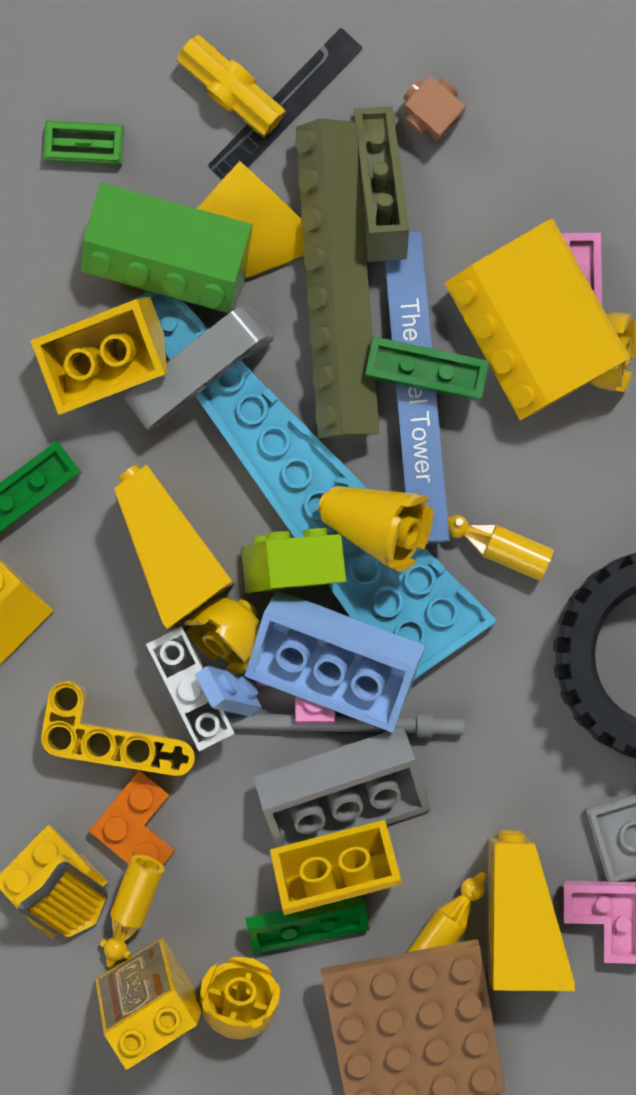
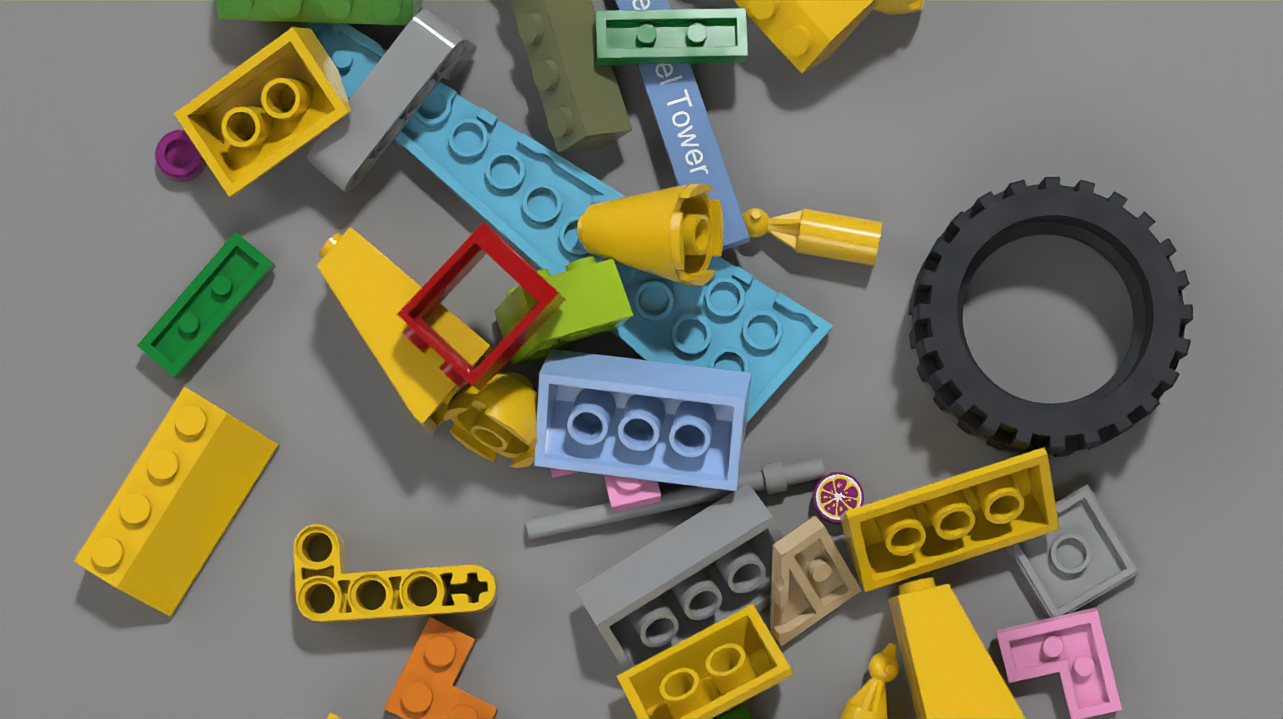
camera: 10 degrees left, 5 degrees down
(25, 369) = (179, 157): none -> magenta tile
(178, 665) = (470, 496): white slope -> none
(184, 565) = (449, 275): none -> red window
(229, 691) = (519, 487): light blue plate -> none
(430, 811) = (807, 580): none -> tan wing
(469, 752) = (837, 494): none -> magenta tile
(550, 792) = (951, 520): none -> yellow slope

